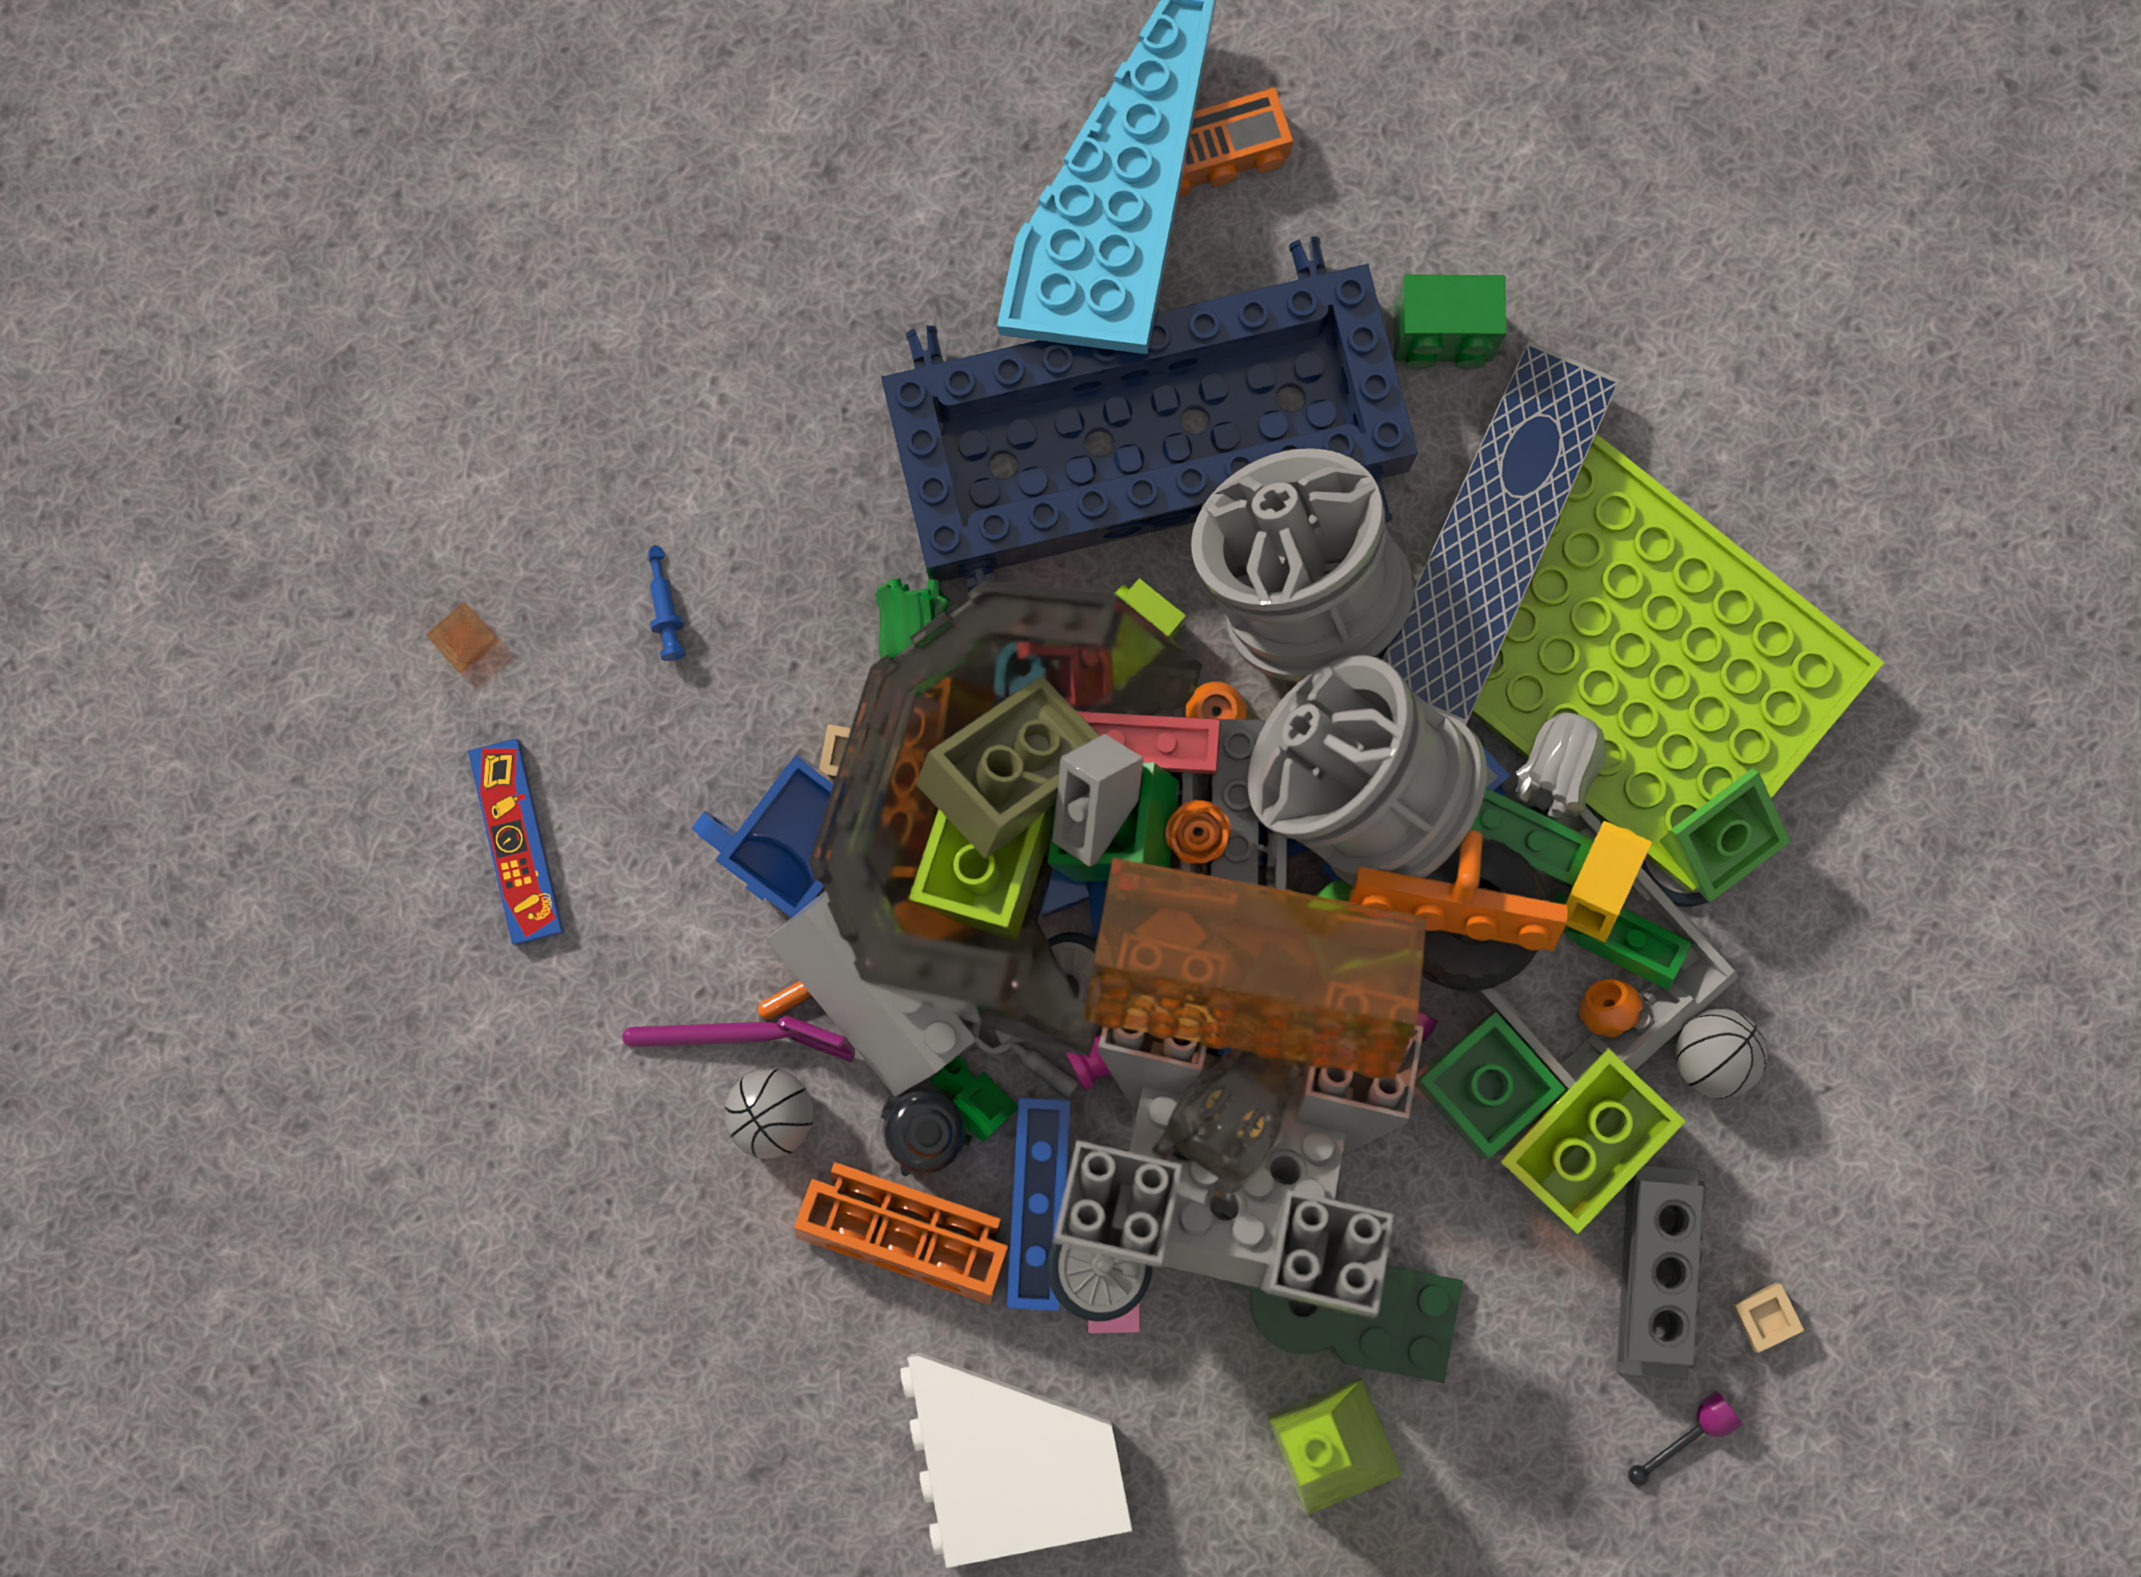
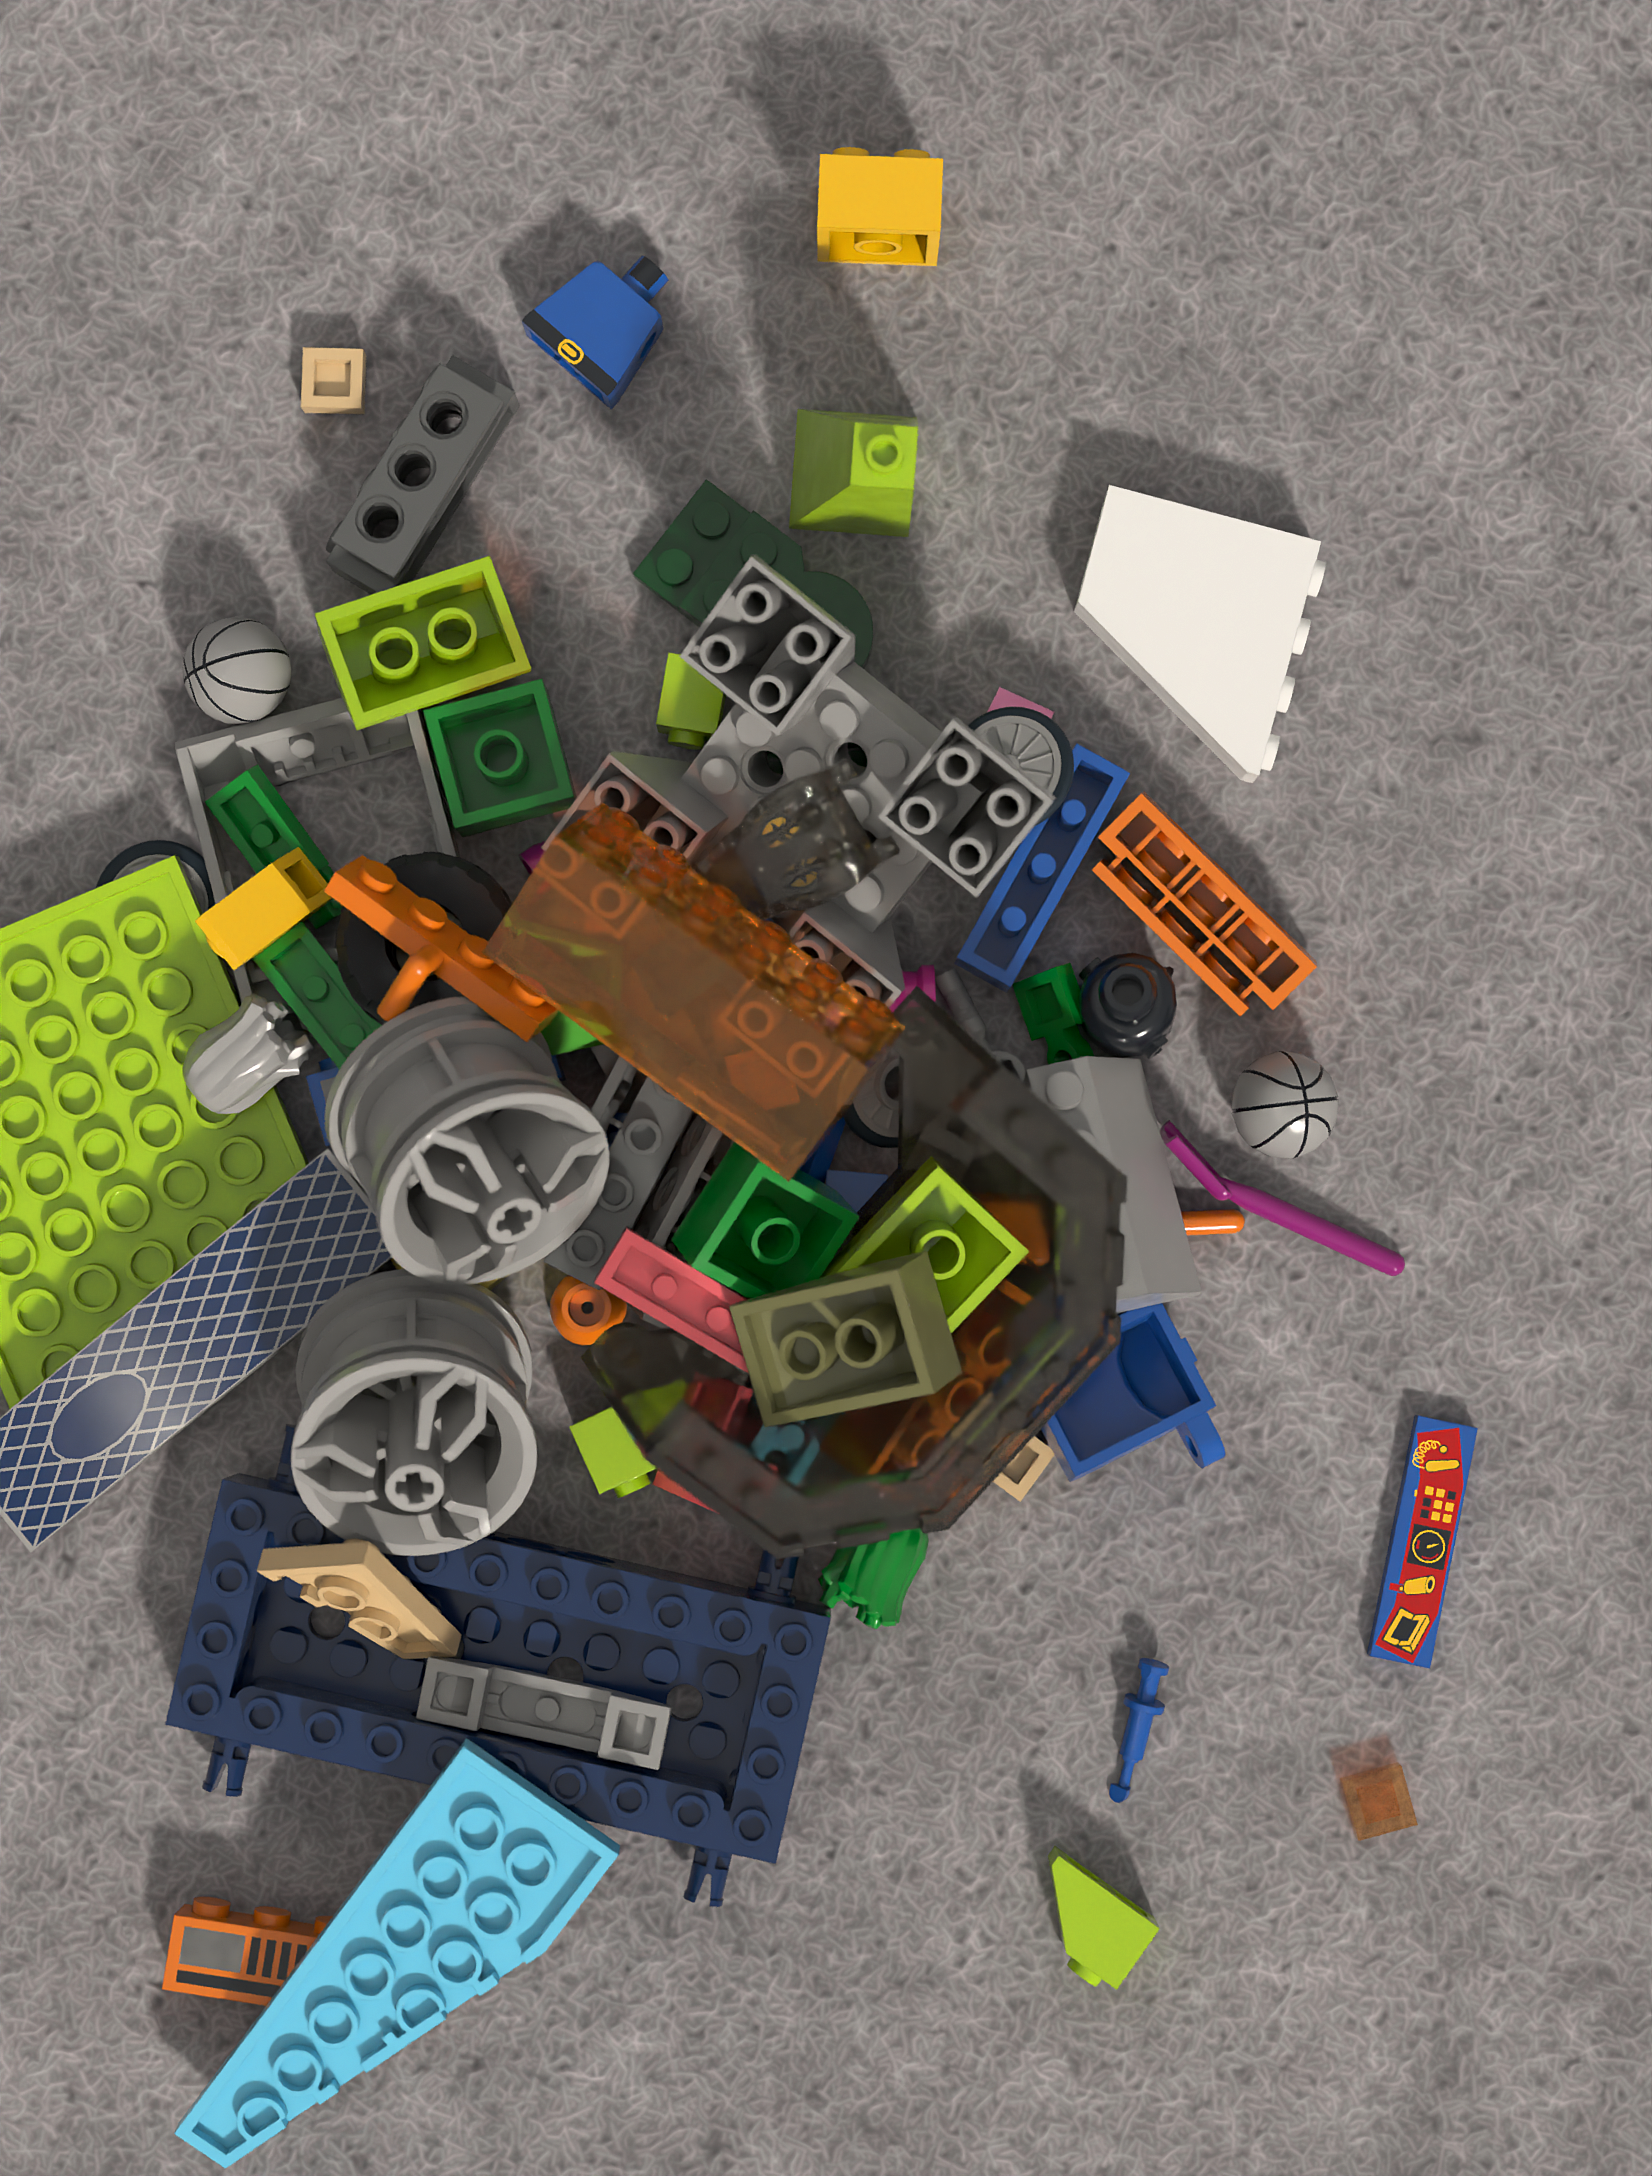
camera: 155 degrees left, 5 degrees up
(626, 453) = (1097, 1923): none -> lime slope
(1095, 796) = (774, 1259): light grey slope -> none
(1101, 408) = (544, 1709): none -> light grey slope
(1198, 847) = (679, 1153): orange plate -> none
(1263, 424) = (371, 1590): none -> tan wing
(1369, 1190) = (688, 705): none -> lime brick
(1449, 319) = (106, 1617): green brick -> none
(1585, 1464) = (601, 326): none -> blue torso
(1610, 1007) = (331, 763): orange plate -> none
(1713, 1418) = (443, 305): hinge -> none
(1727, 836) = (108, 892): bright green slope -> none

